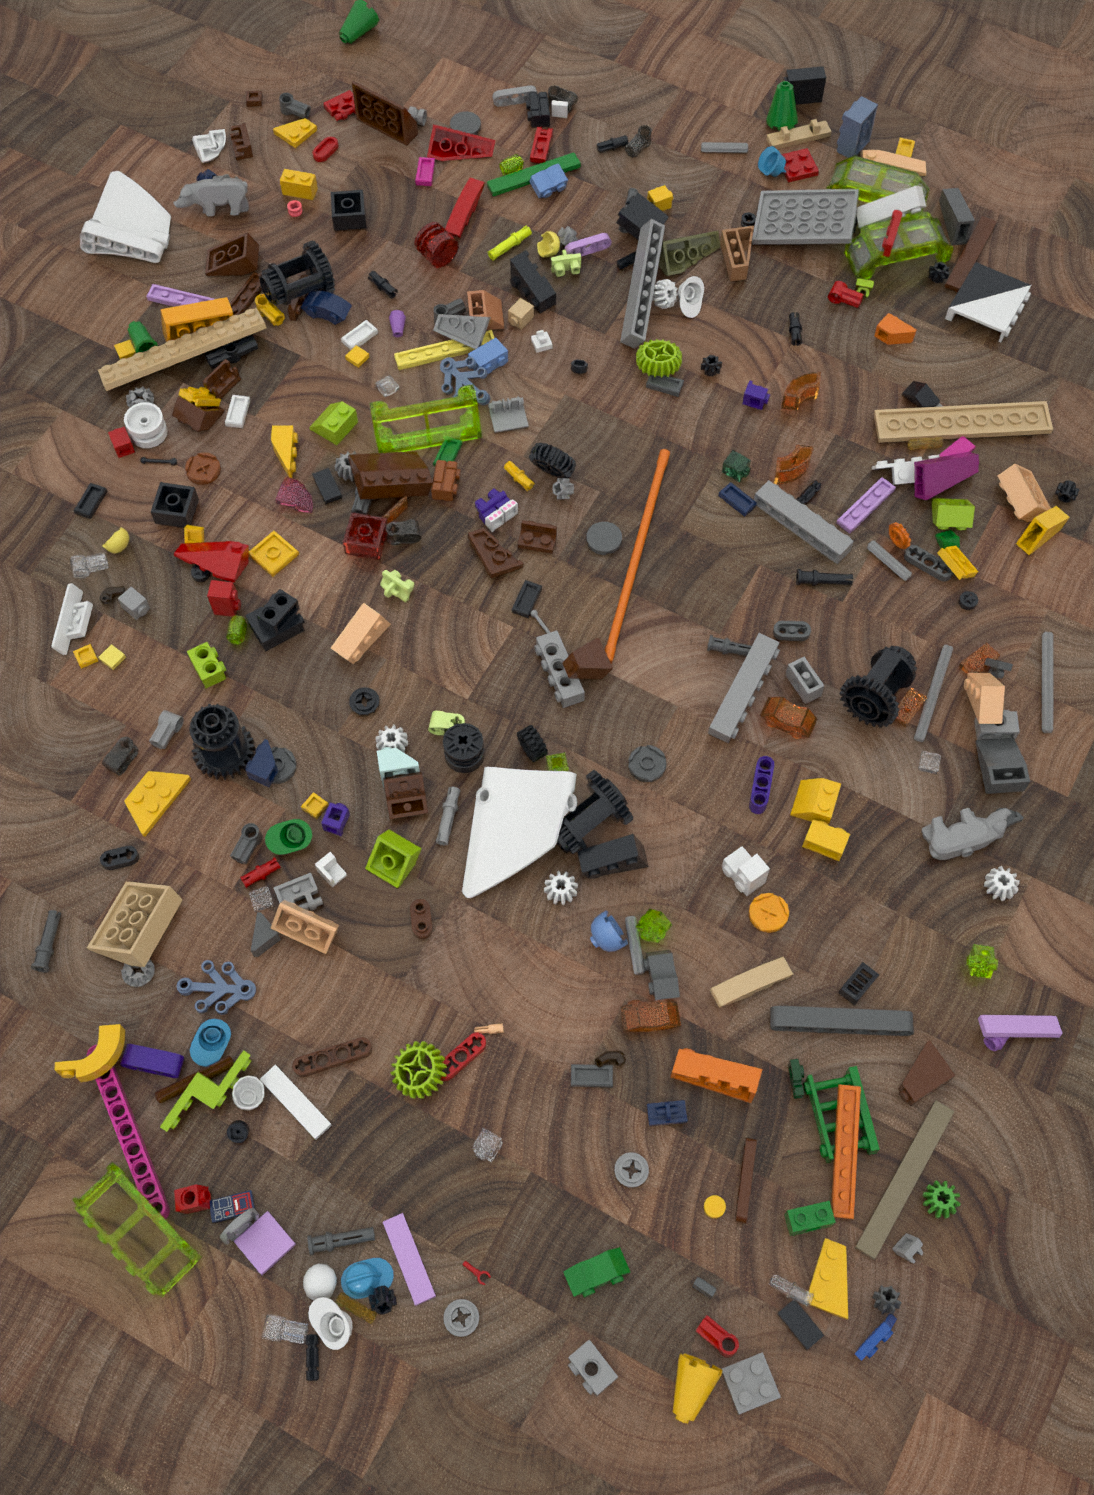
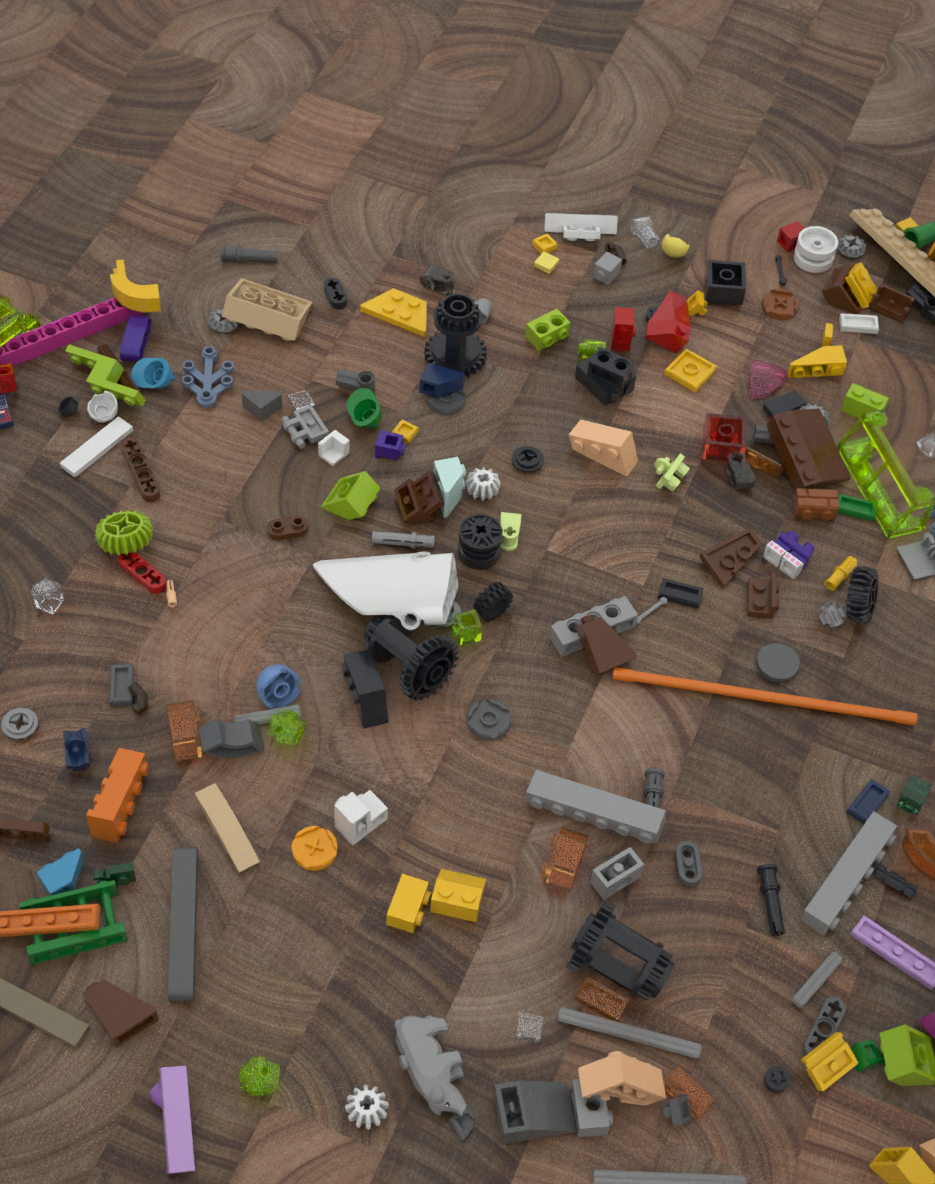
camera: 80 degrees right, 10 degrees down
(90, 500) = (720, 225): black tile -> none
(253, 437) = (827, 335): none -> yellow tile
(260, 872) = (328, 396): red pin -> none
(304, 926) = (269, 426): light nougat slope -> none
(560, 895) = (327, 642): white gear -> none
(765, 777) = (482, 827): dark purple beam -> none
(797, 1125) = (62, 874): none -> dark azure slope
(850, 995) = (221, 925): black slope -> none
(899, 535) = (852, 985): orange gear -> none

